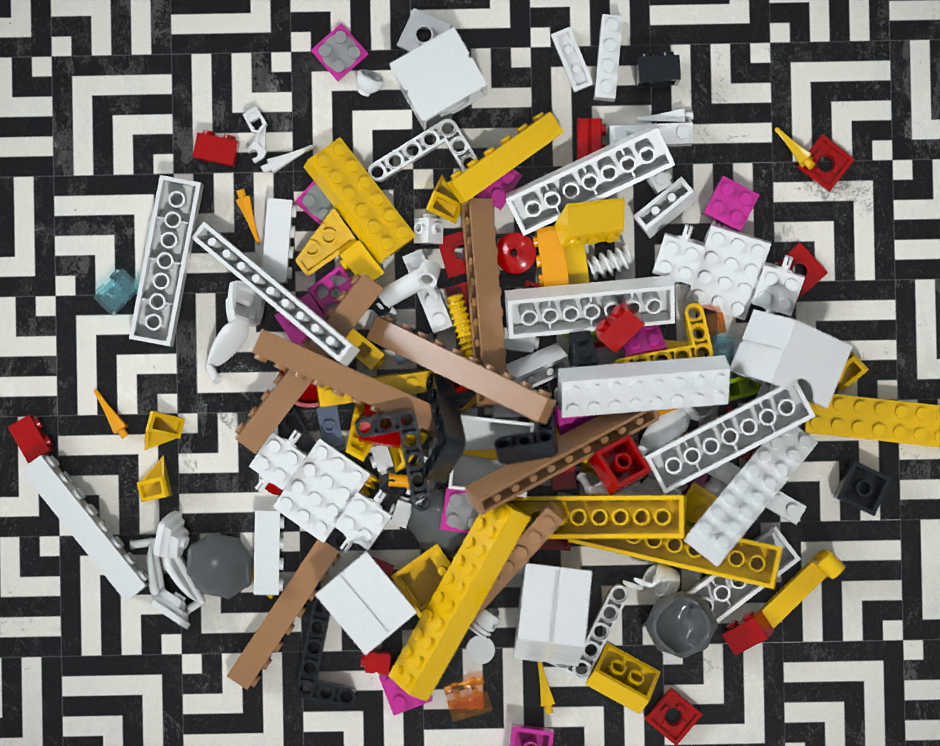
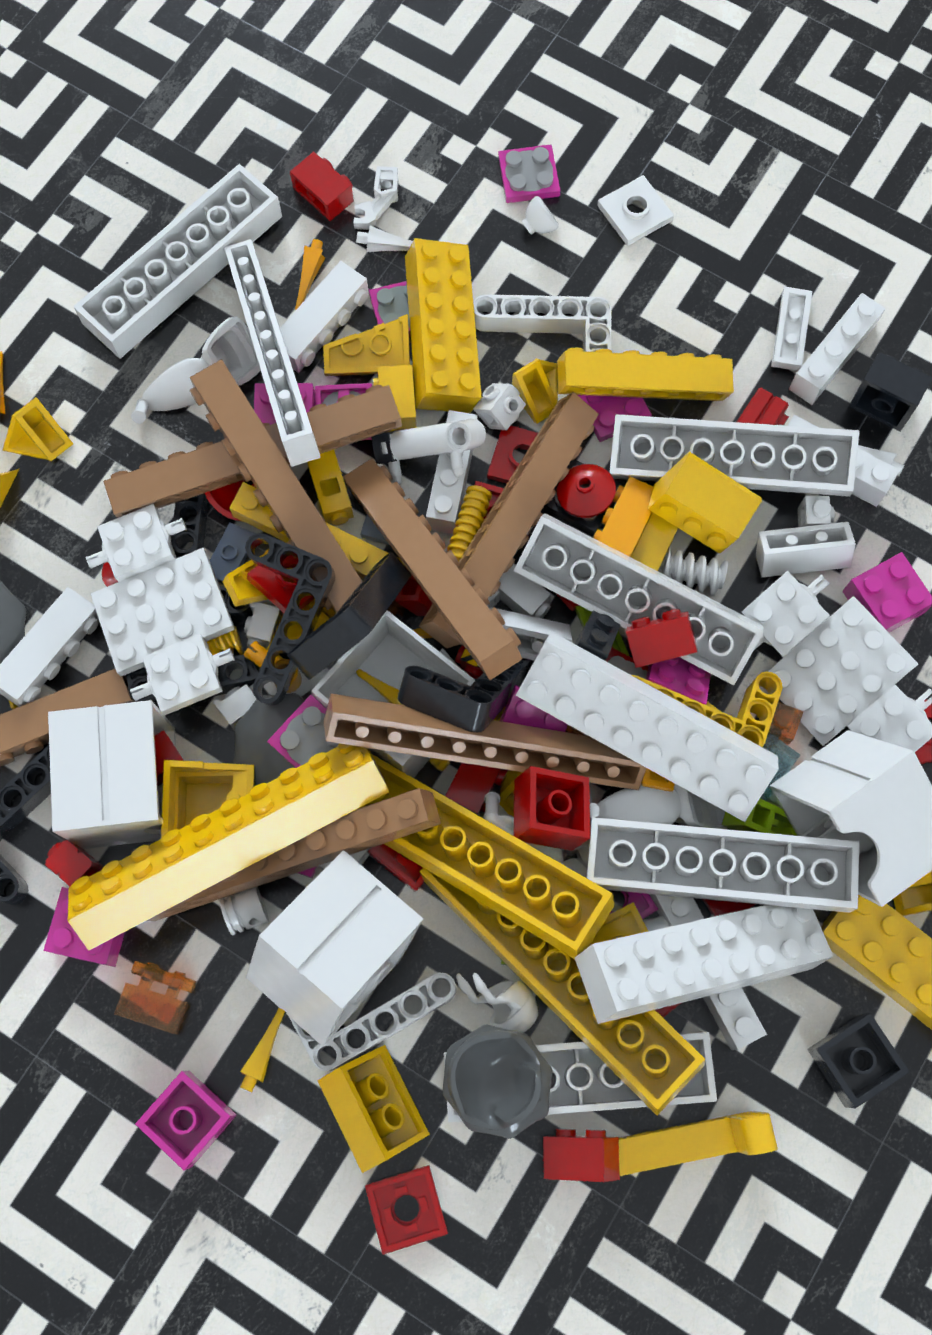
camera: 35 degrees right, 15 degrees down
(116, 291) = (99, 259): clear light blue brick -> none
(439, 78) = (626, 238): white piece -> none
(480, 650) = (216, 946): white sticker -> none

